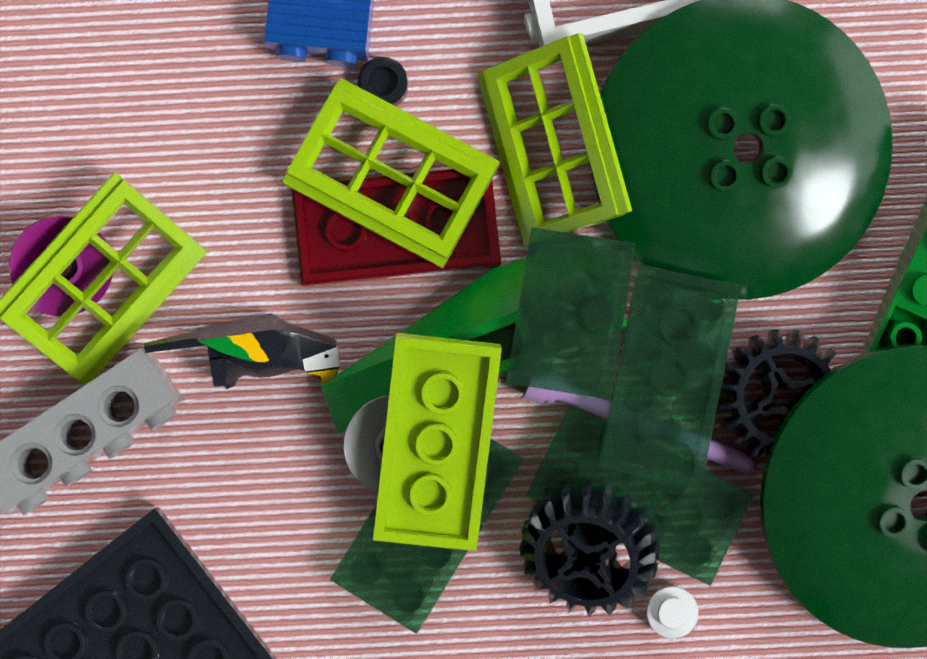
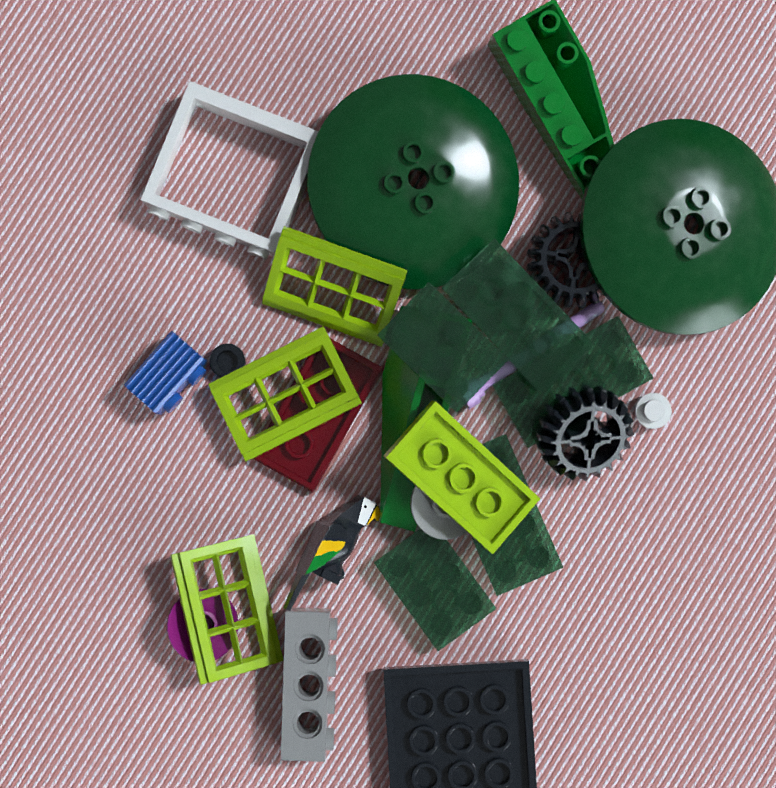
camera: 55 degrees left, 0 degrees up
(290, 501) = (435, 587): none -> clear green plate

